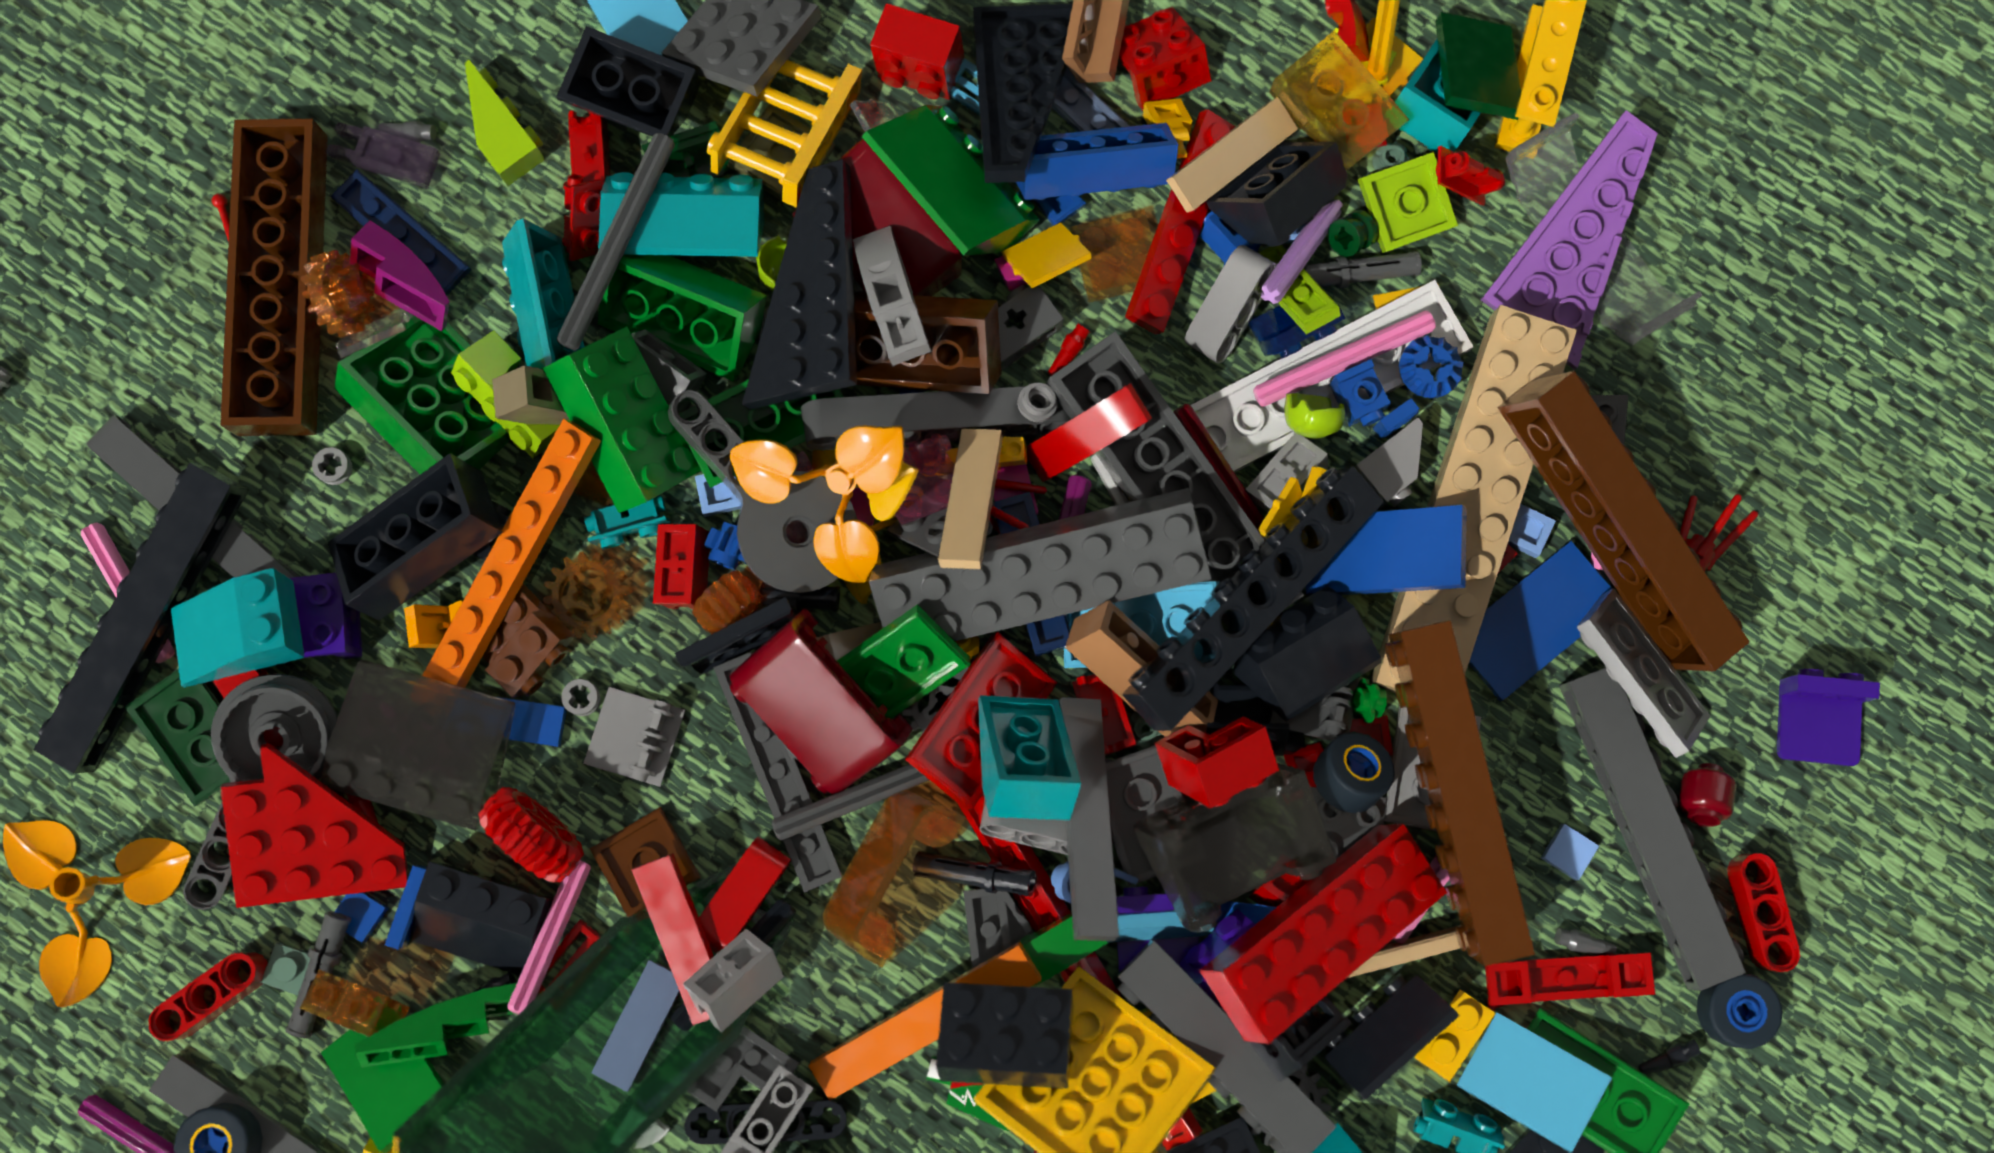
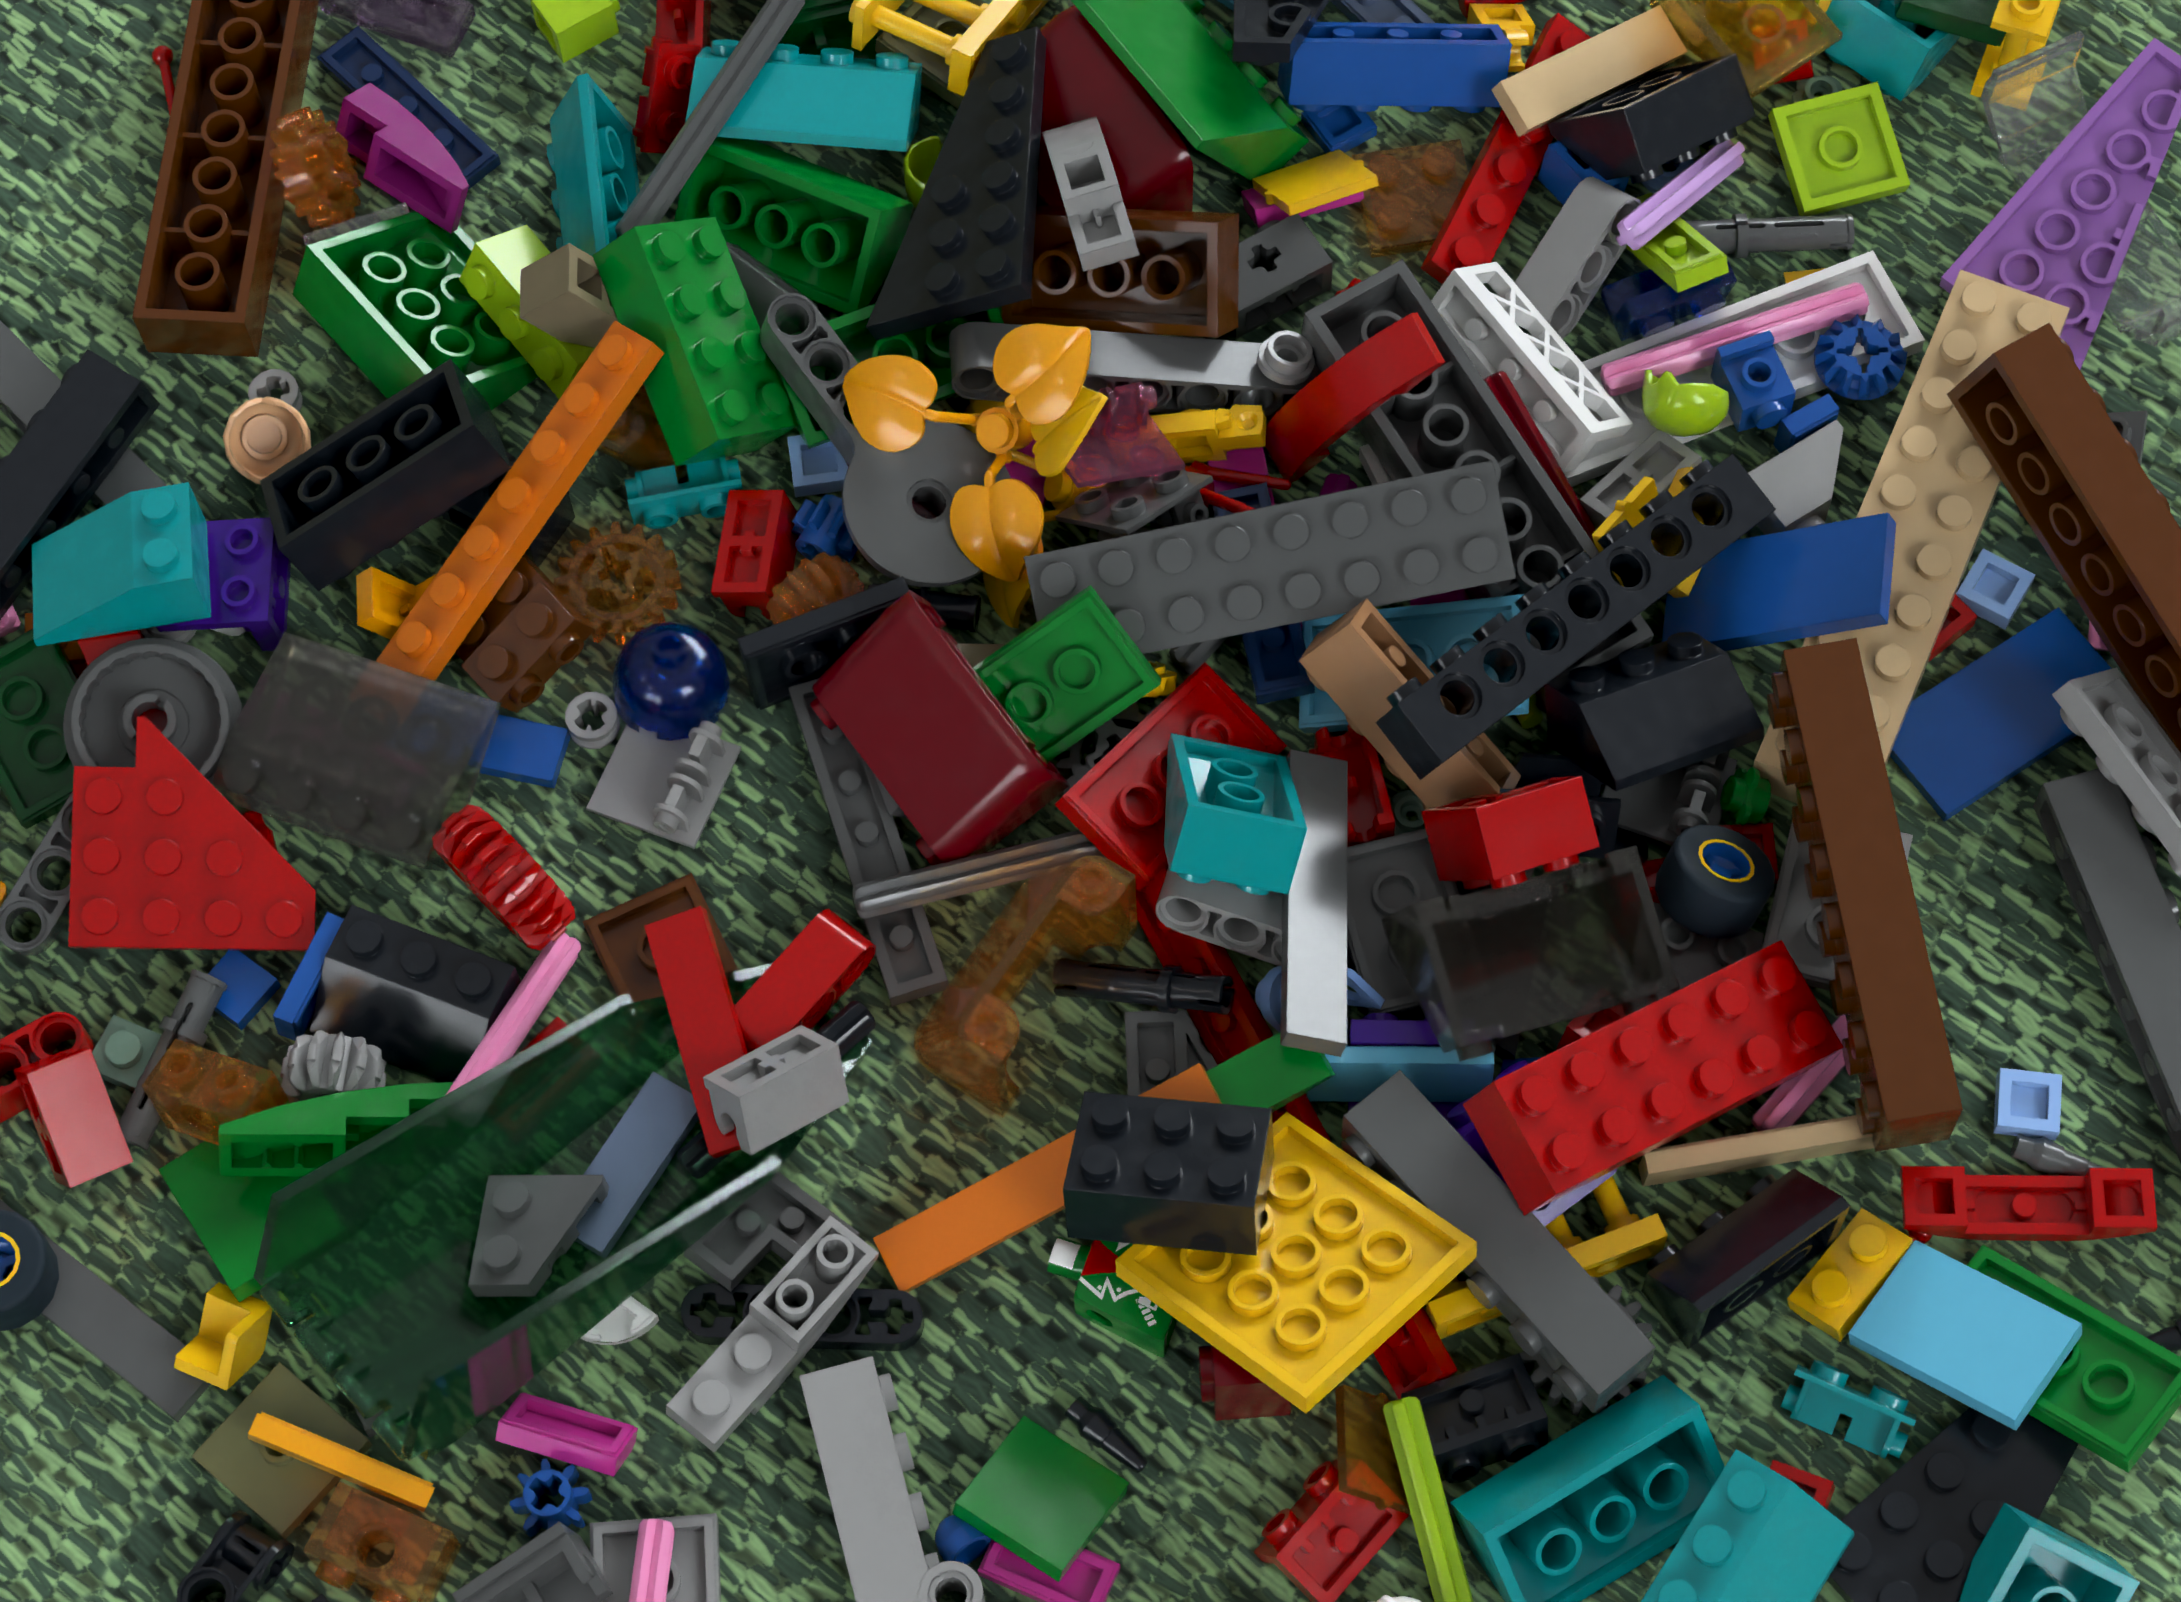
camera: 10 degrees right, 15 degrees down
(255, 1028) = (73, 1116): none -> hinge
(329, 505) = (264, 437): none -> light nougat hair
(430, 981) = (330, 1065): none -> light grey gear
(574, 1084) = (527, 1228): none -> dark grey wing
(632, 668) = (670, 680): none -> clear blue cylinder
(970, 499) = (1179, 461): tan tile -> none
(1175, 370) = (1494, 343): none -> white fence
(1302, 1039) = (1610, 1224): black hinge -> none
(1358, 224) = (1769, 190): dark green wheel -> none
(1467, 176) = (1924, 117): red hinge -> none
(1565, 906) = (2027, 1103): none -> light blue plate
(1569, 852) = (2038, 1031): light blue tile -> none

